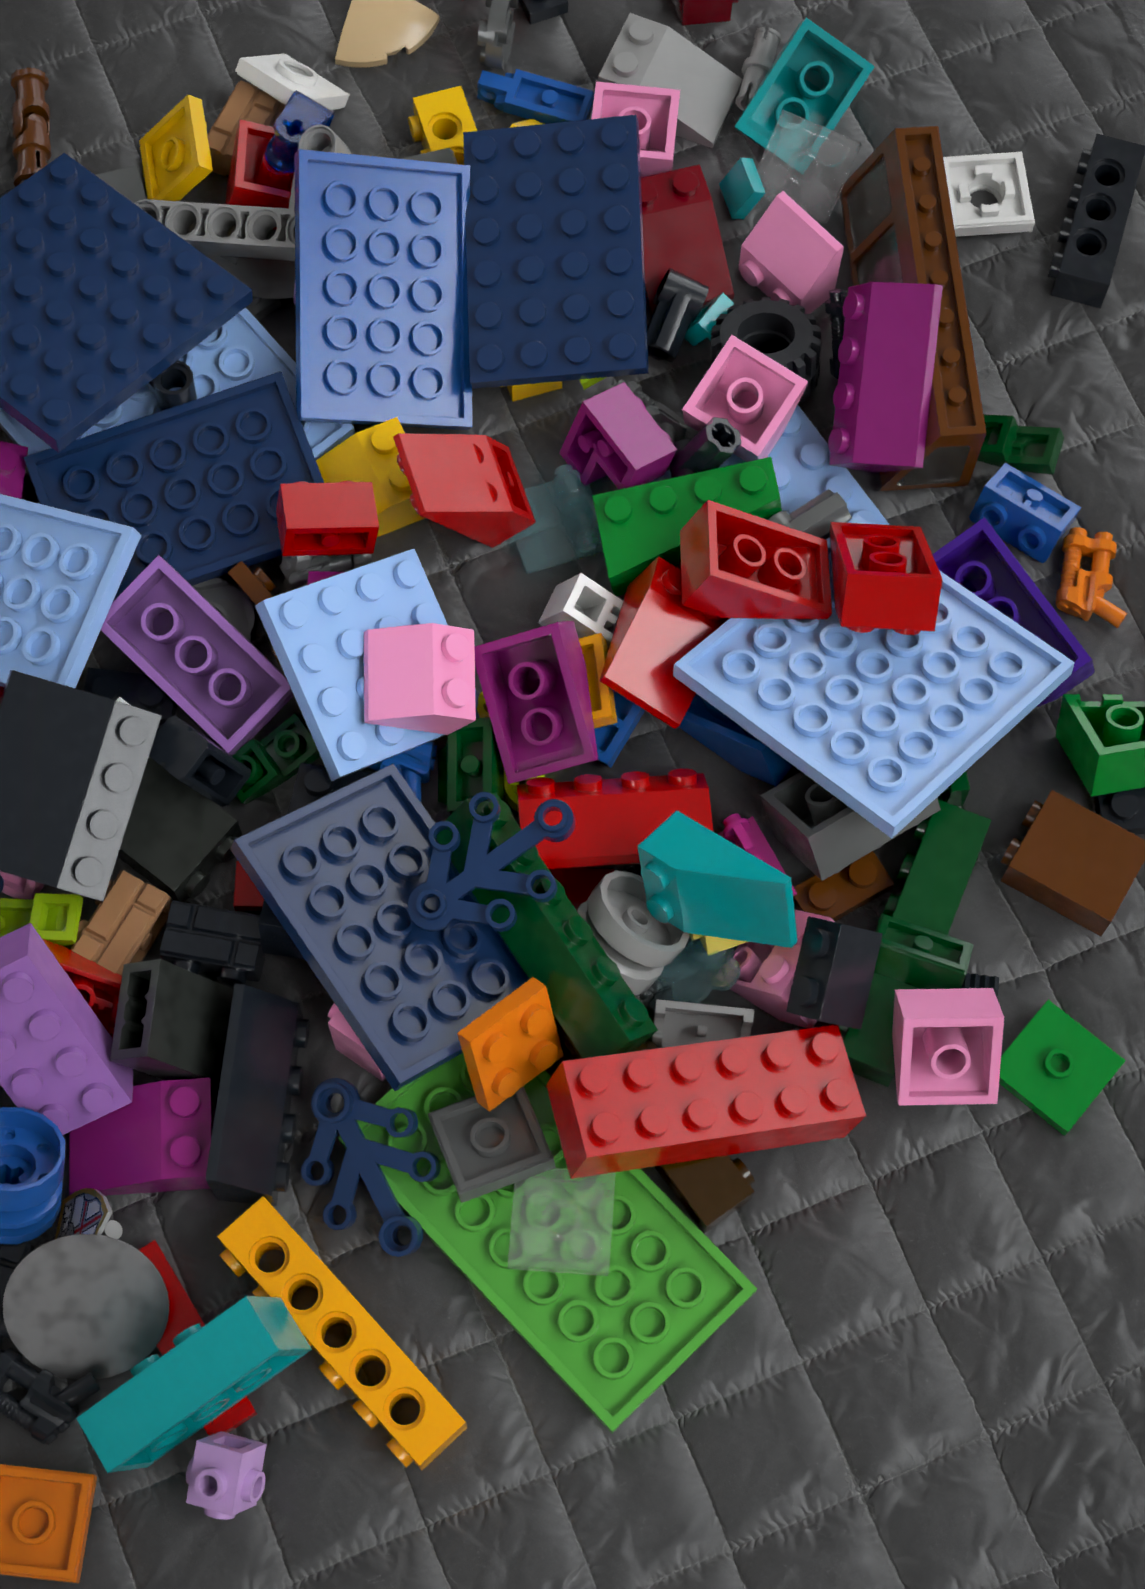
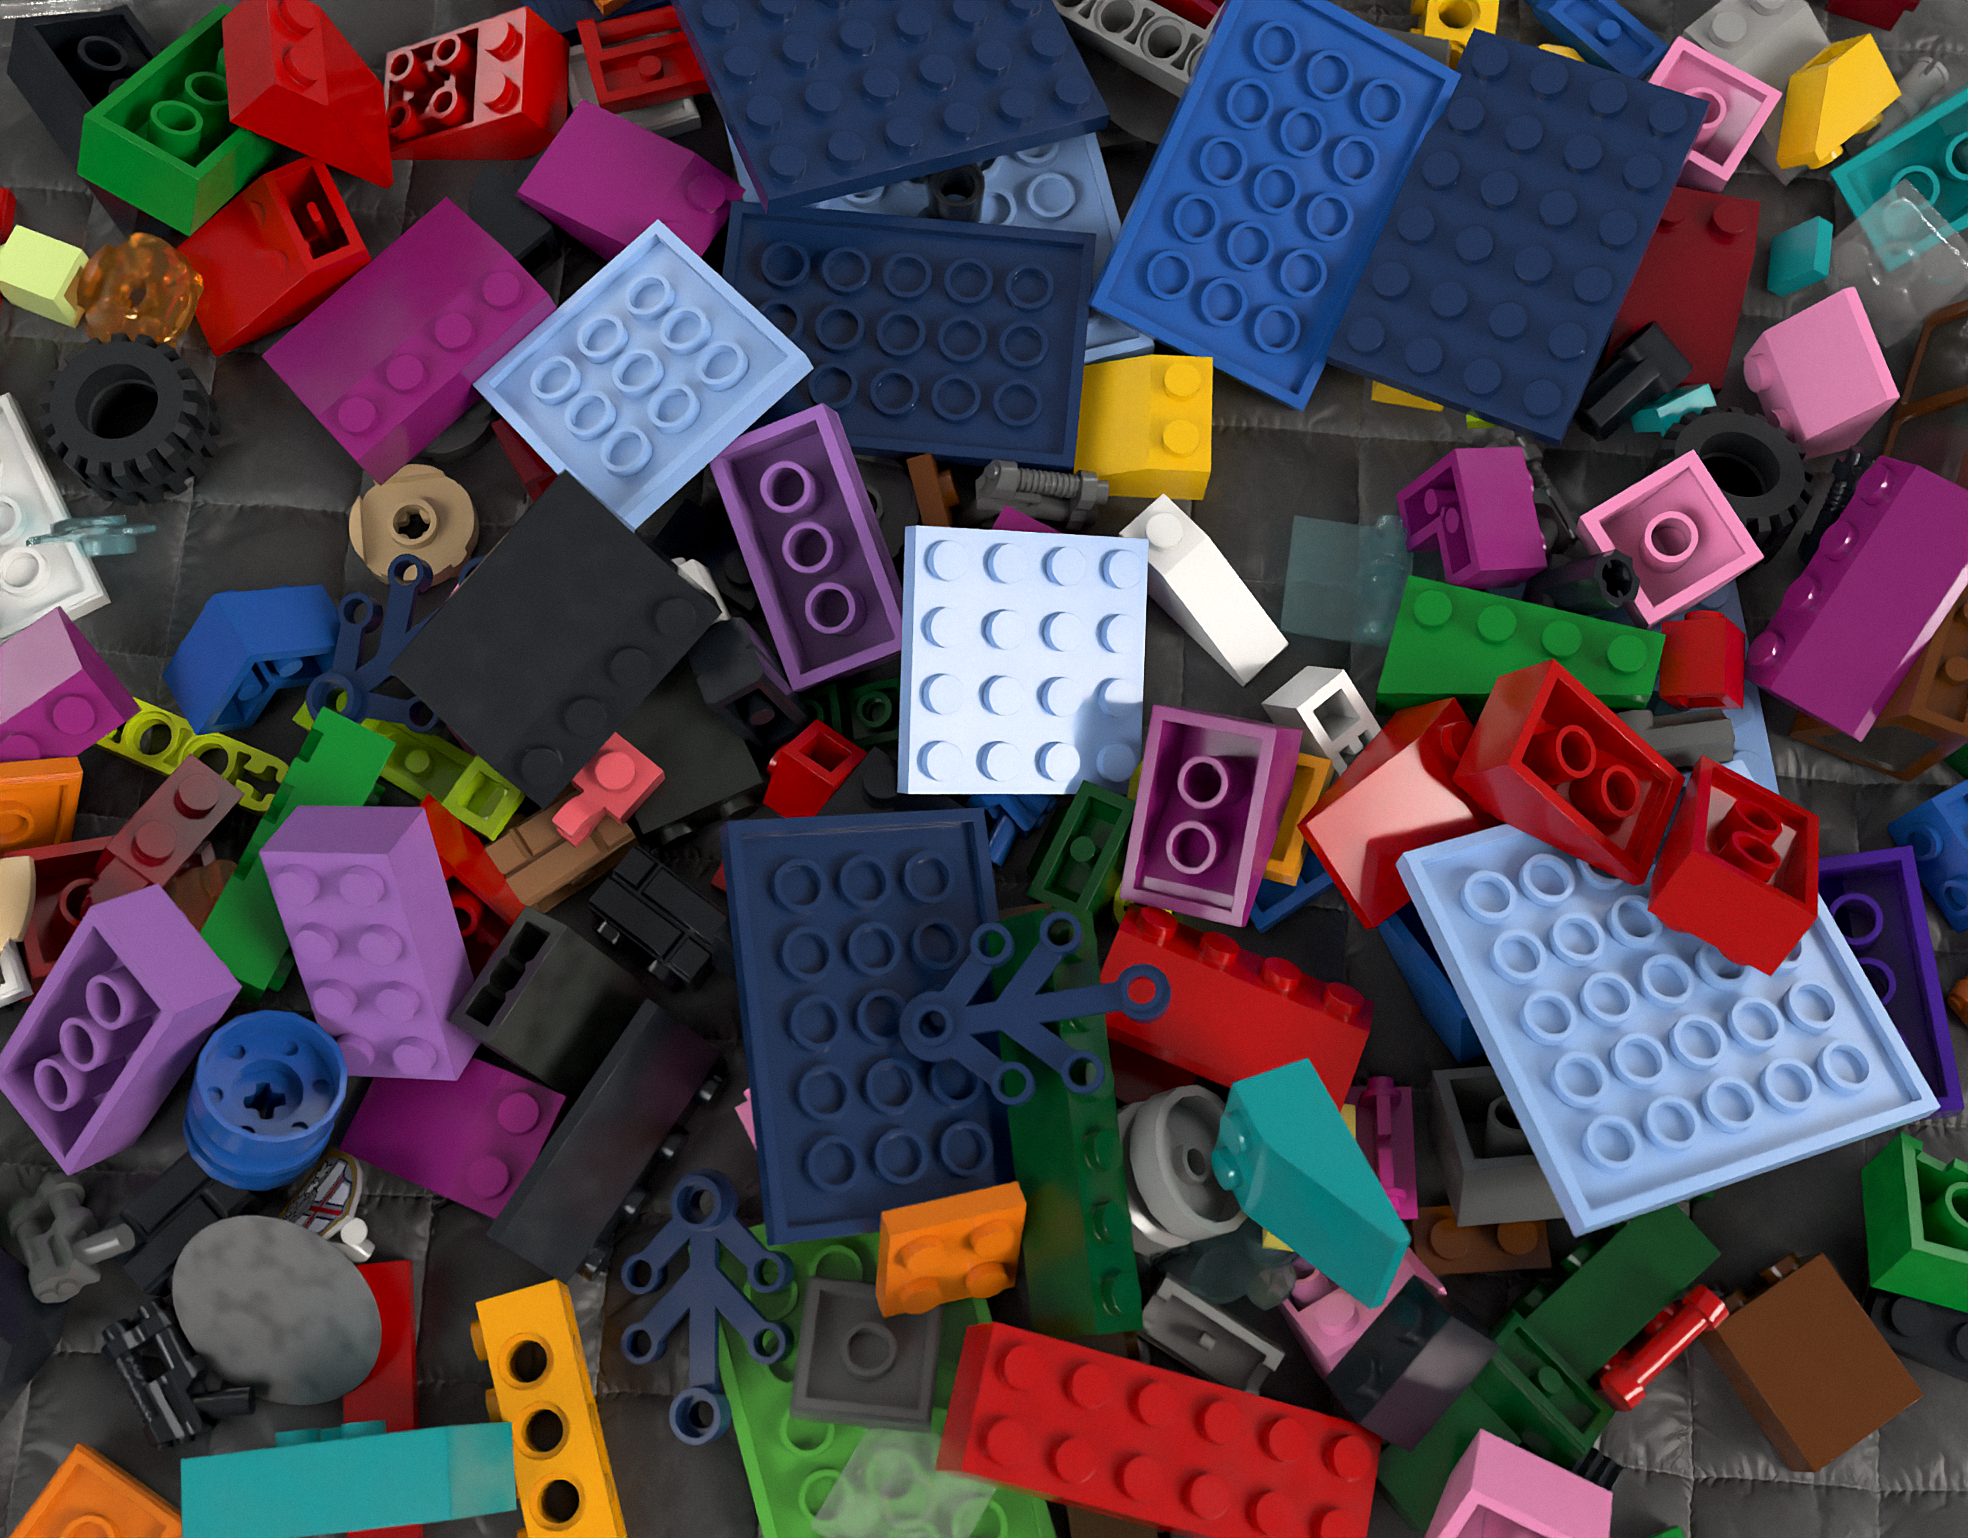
camera: 25 degrees right, 5 degrees up
(137, 869) = (610, 783): none -> coral plate
(264, 796) = (810, 770): none -> red brick
(327, 518) = (1058, 450): red brick -> none
(420, 677) = (1070, 712): bright pink slope -> none
(465, 484) = (1253, 484): slope -> none
(466, 570) = (1204, 592): none -> white slope
(714, 80) = (1832, 100): none -> yellow slope
(803, 466) = (1702, 663): none -> red brick
(982, 885) = (1632, 1368): none -> red plate

